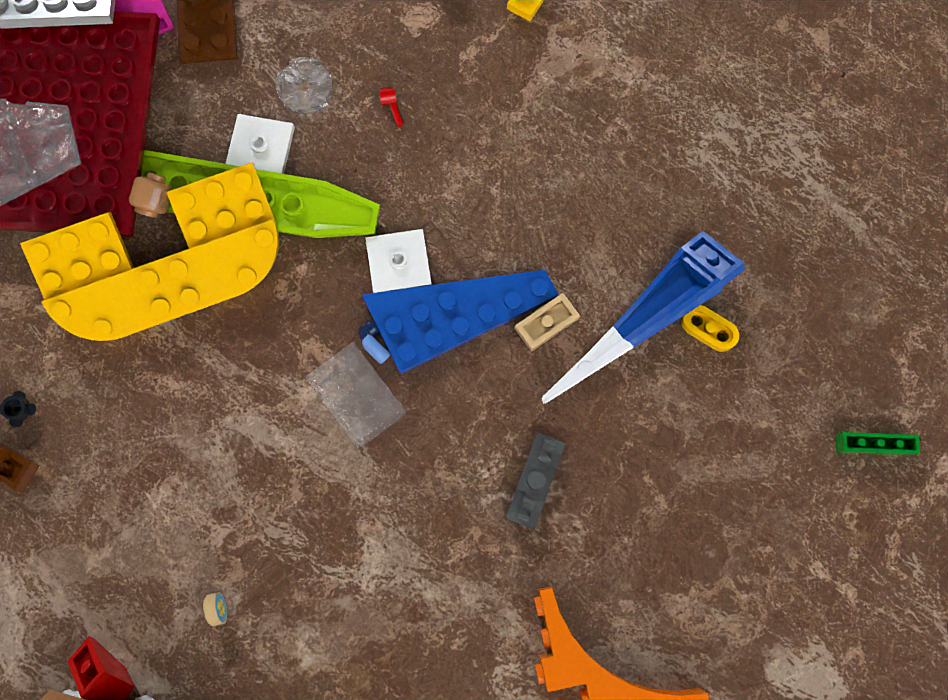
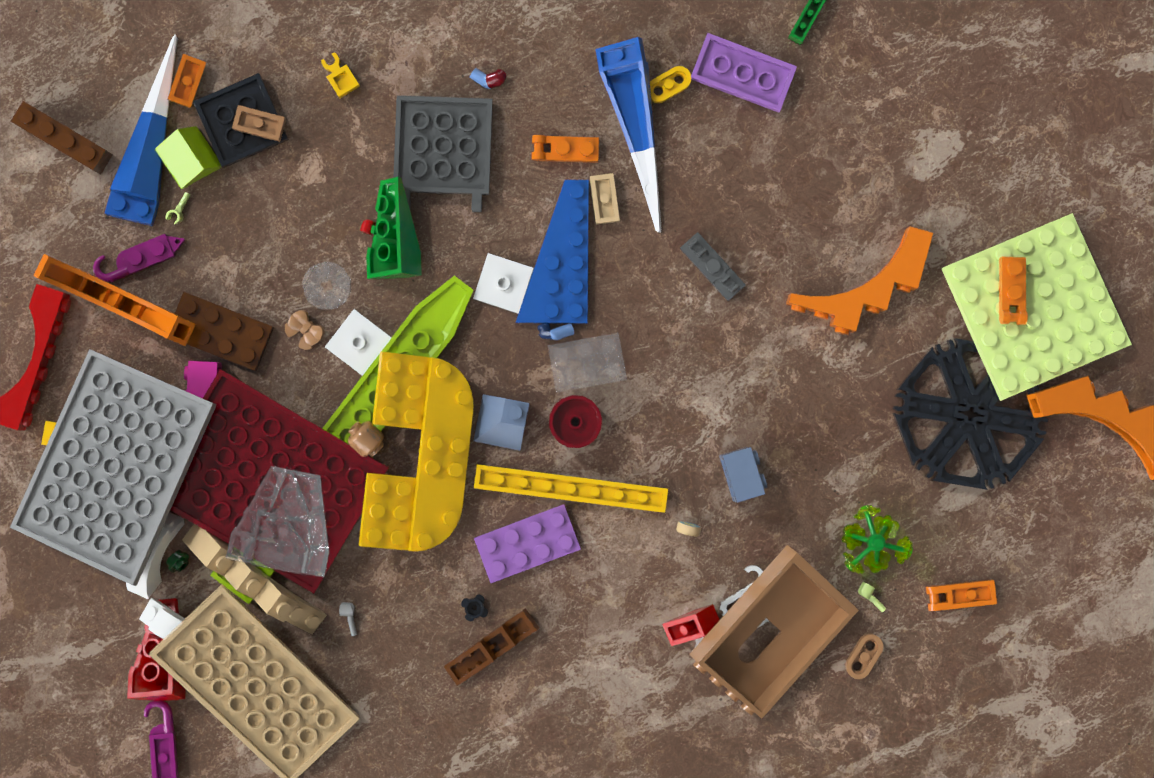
camera: 65 degrees left, 10 degrees up
(118, 431) = (527, 543): none -> medium lavender plate
(203, 451) = (571, 488): none -> yellow plate
(244, 336) = (501, 422): none -> sand blue slope
(251, 78) = (300, 322): none -> medium nougat piece
(261, 416) = (561, 418): none -> dark red wheel
(300, 645) = (742, 474): none -> sand blue brick
(381, 131) = (395, 243): none -> green wedge
(510, 129) = (444, 146): none -> dark grey plate
(579, 255) = (566, 149): none -> orange plate
(607, 142) = (489, 80): none -> arm
(770, 403) = (743, 72): none -> medium lavender plate

